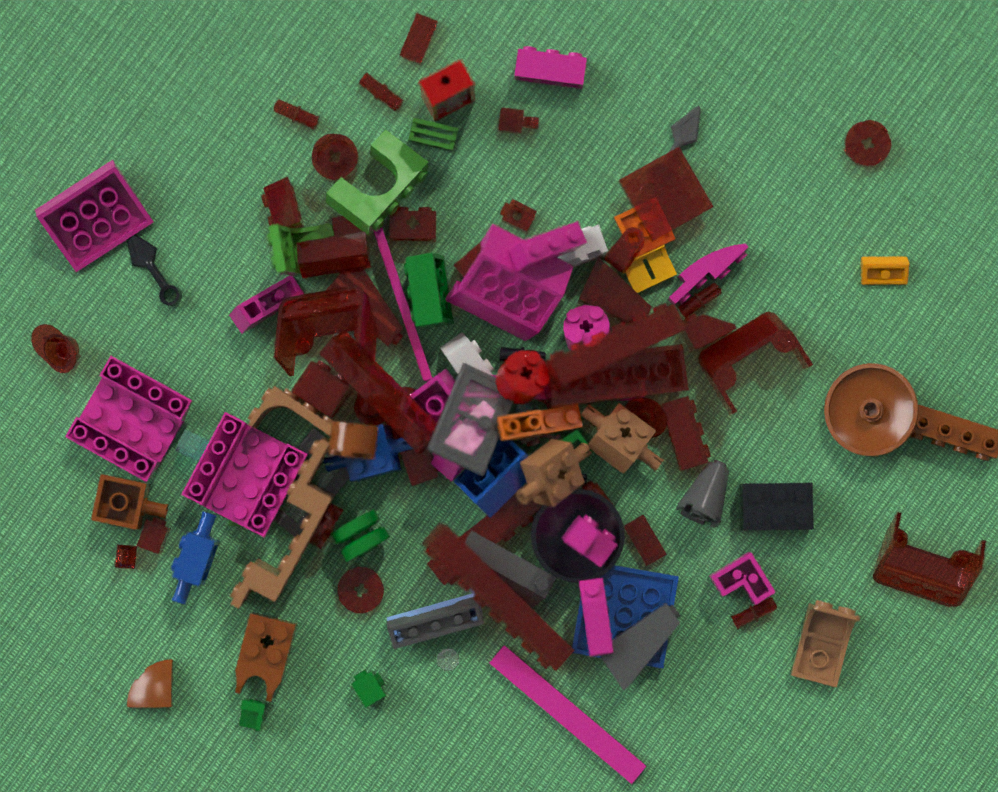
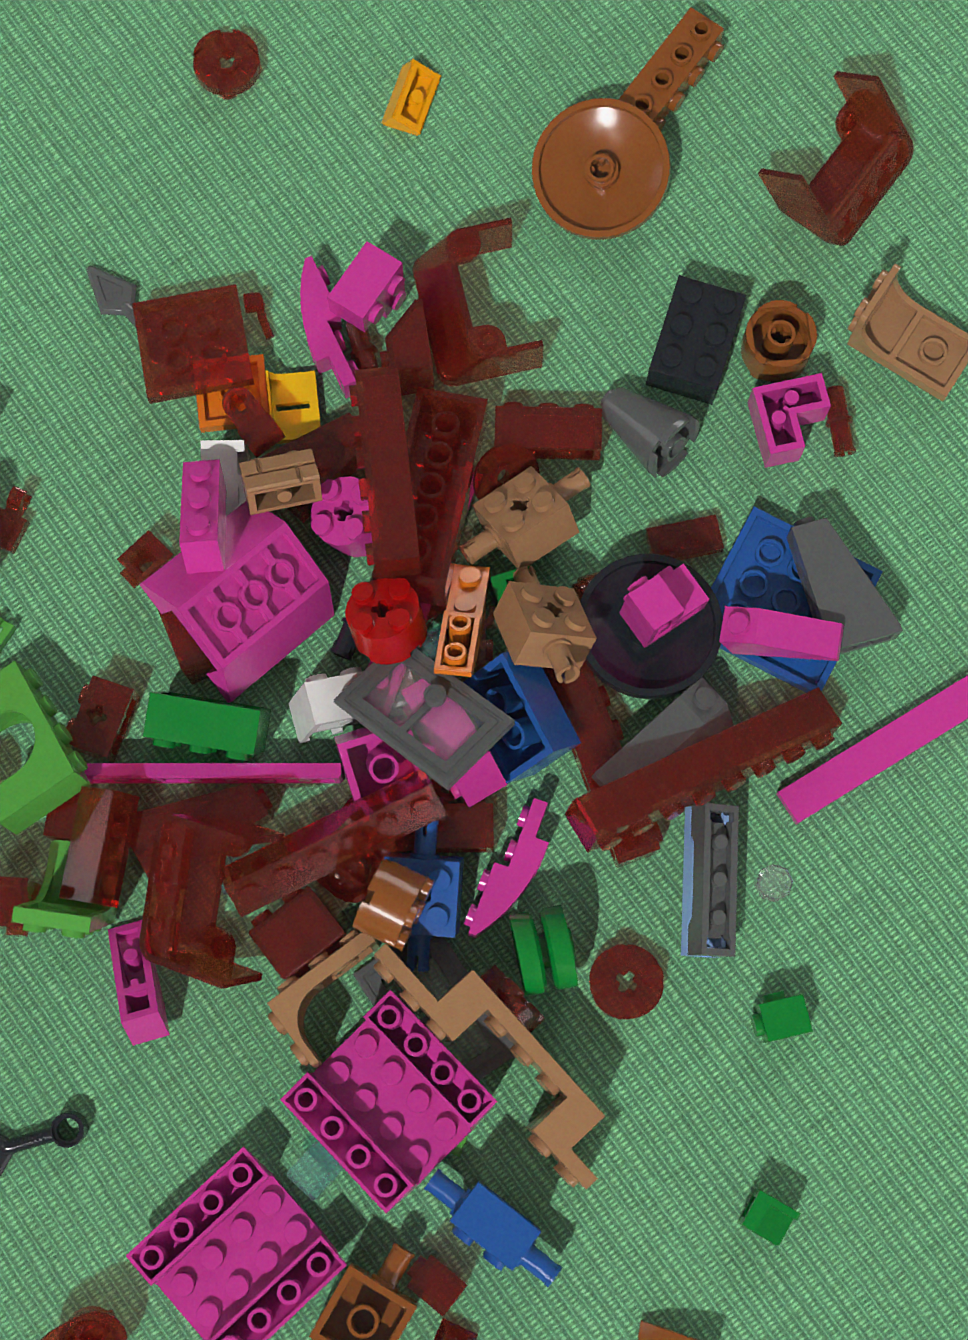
camera: 70 degrees left, 10 degrees down
(265, 661) = (688, 1173): dark orange brick -> none
(393, 500) = (504, 884): none -> dark pink slope
(588, 283) = (280, 481): none -> medium nougat brick
(709, 221) = (254, 303): none -> clear red hand
(736, 290) = (368, 288): none -> dark pink brick
(804, 563) = (795, 336): none -> dark orange brick

